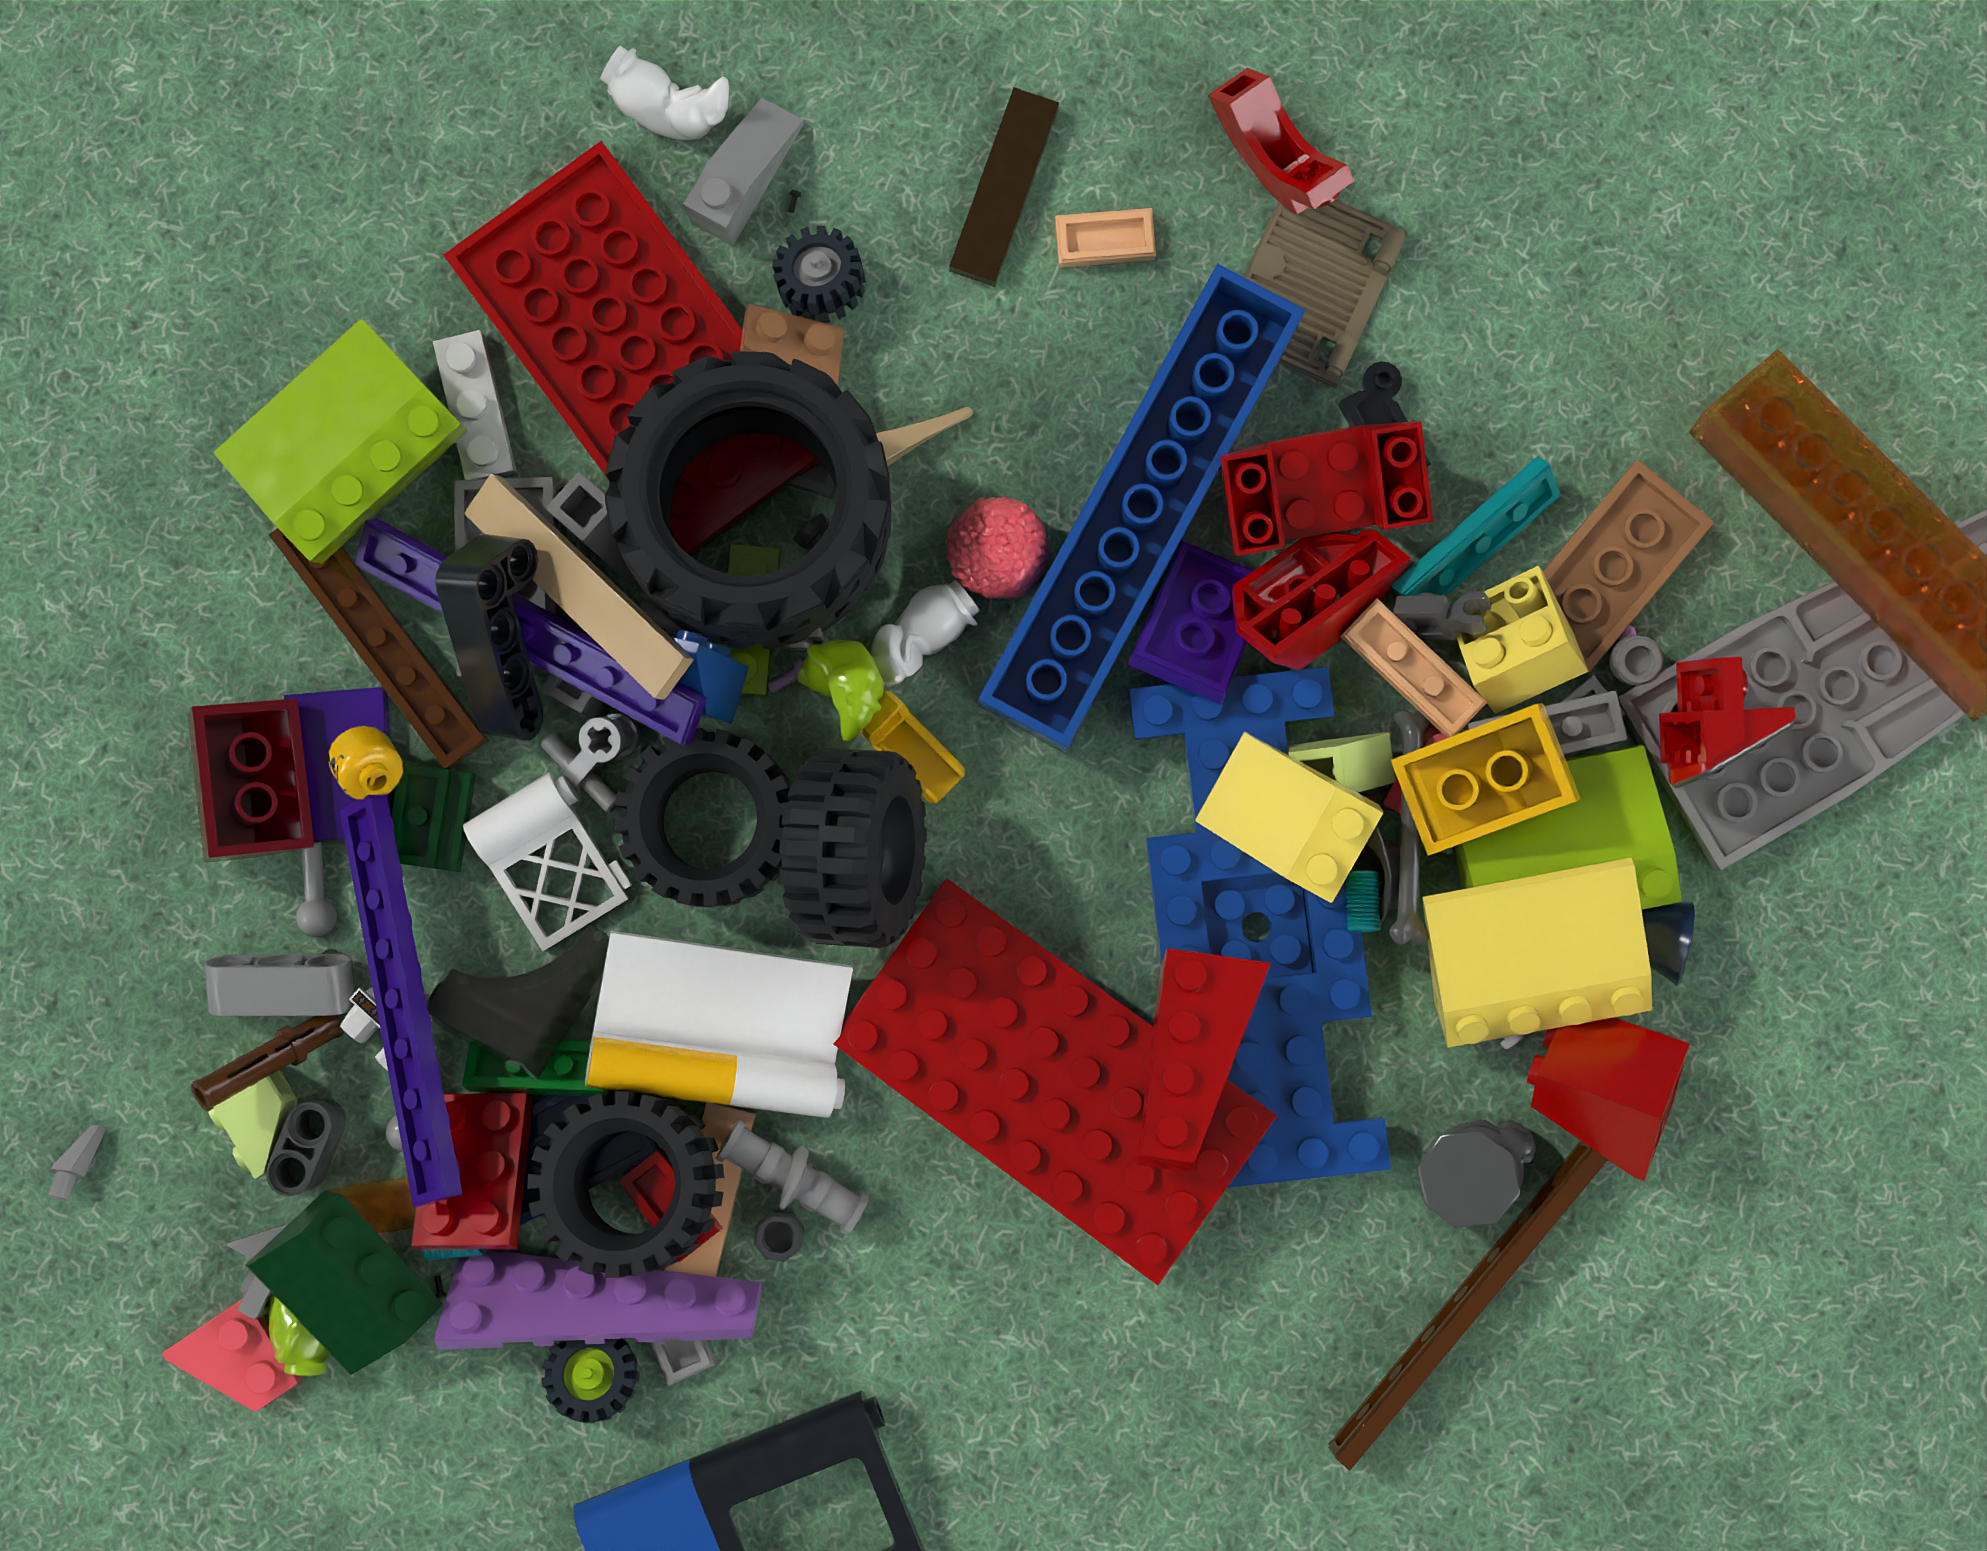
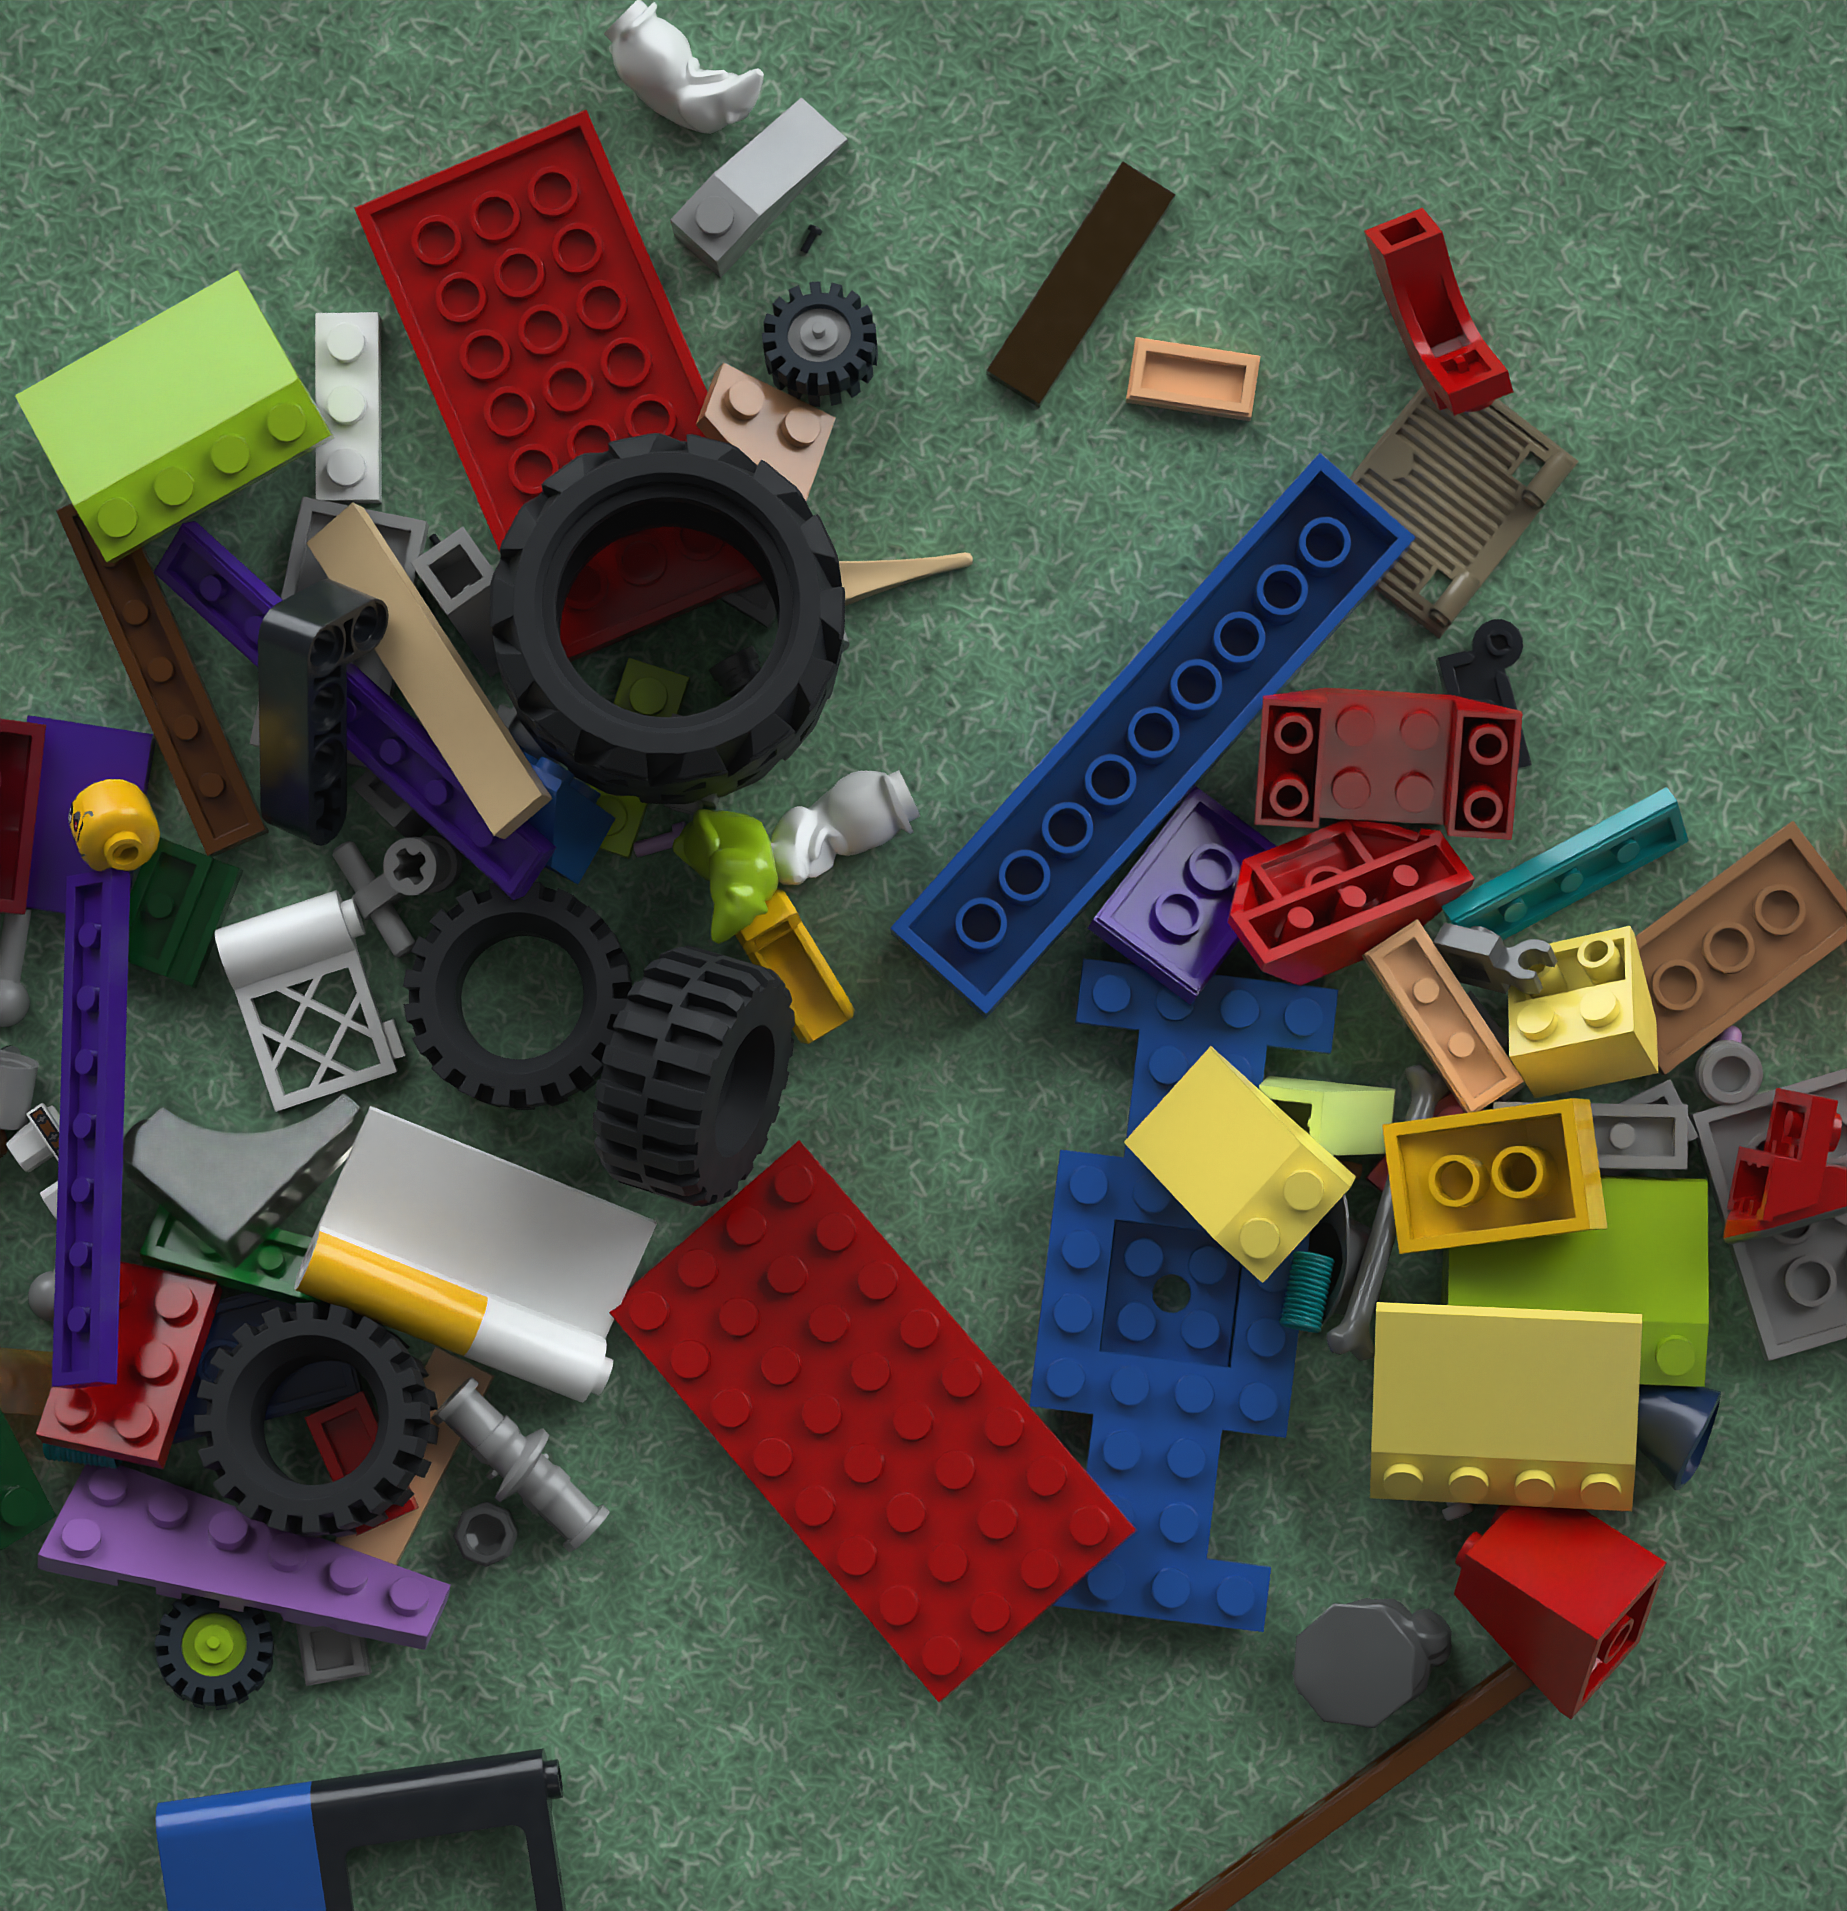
camera: 15 degrees right, 0 degrees up
(440, 1294) = (51, 1495): black piece -> none
(997, 548) = (961, 742): coral hair -> none
(1195, 1037) = (1058, 1406): red wedge -> none

